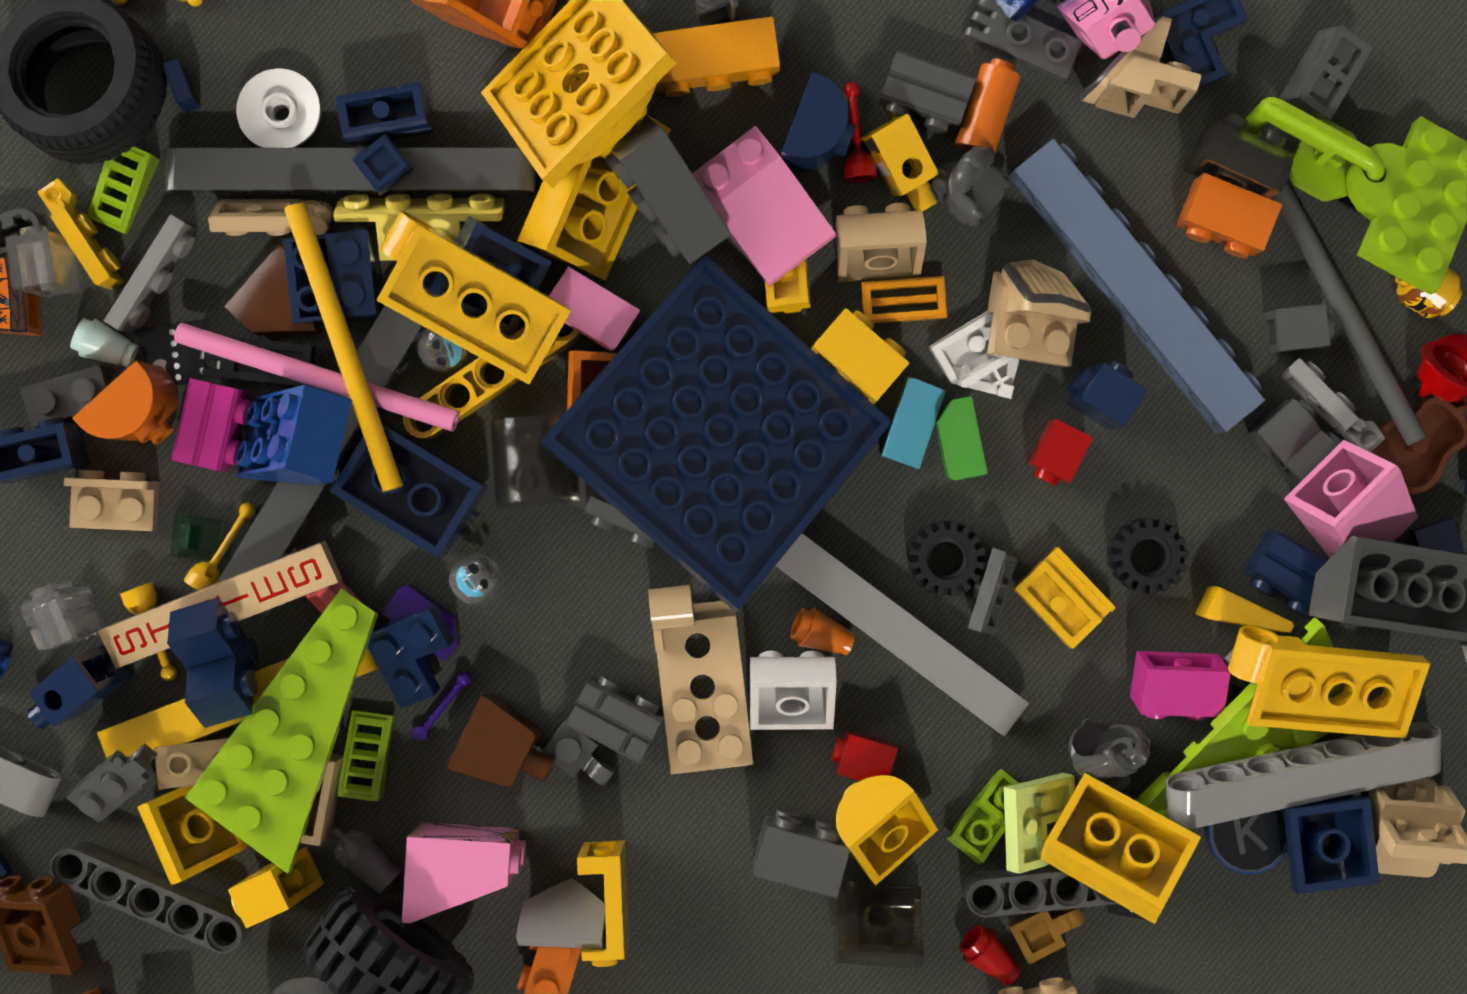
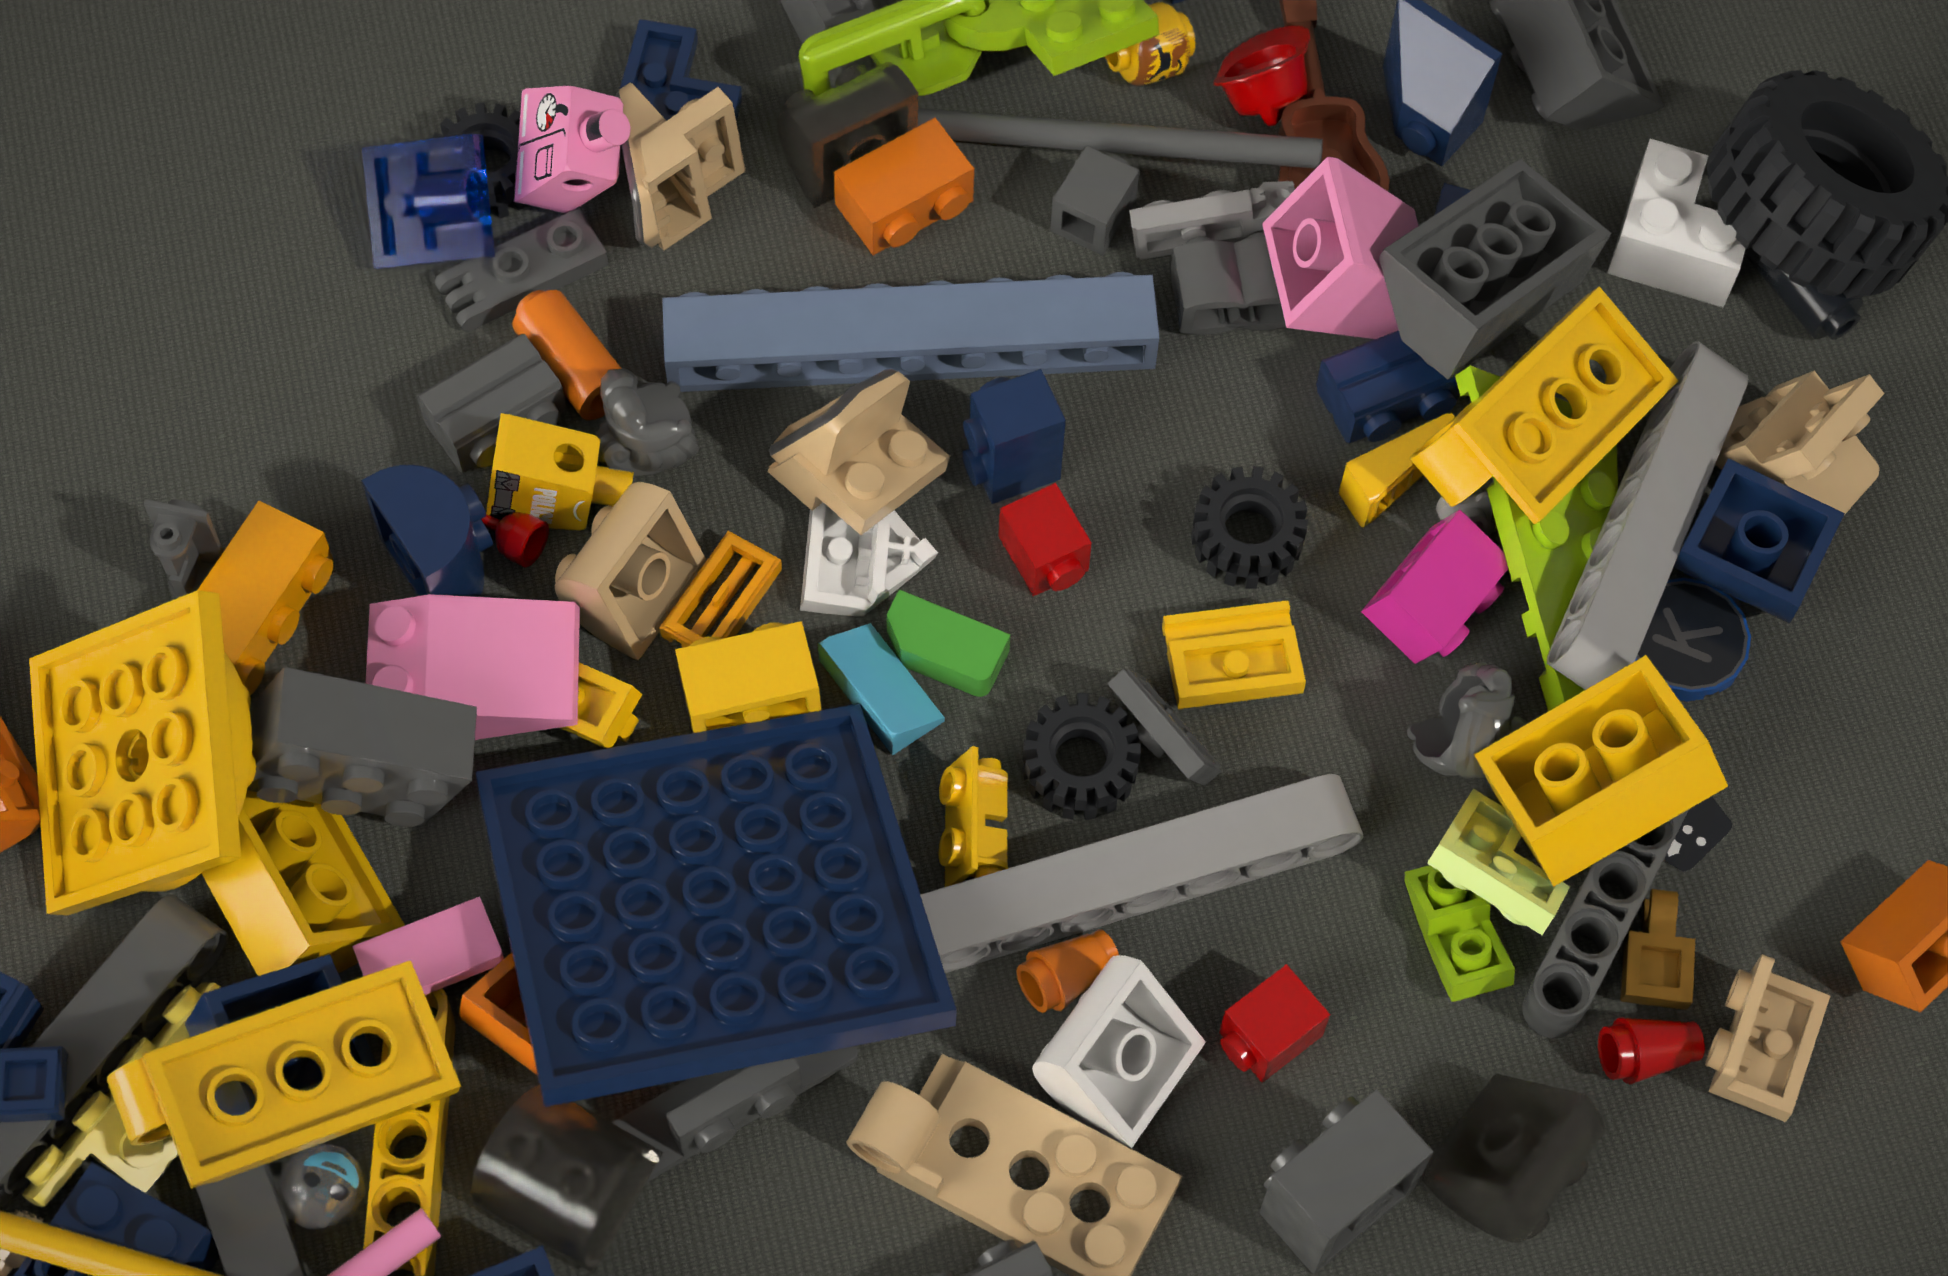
camera: 60 degrees left, 25 degrees down
(882, 824) = (1374, 1034): yellow brick -> none
(883, 514) = (973, 793): none -> yellow hinge

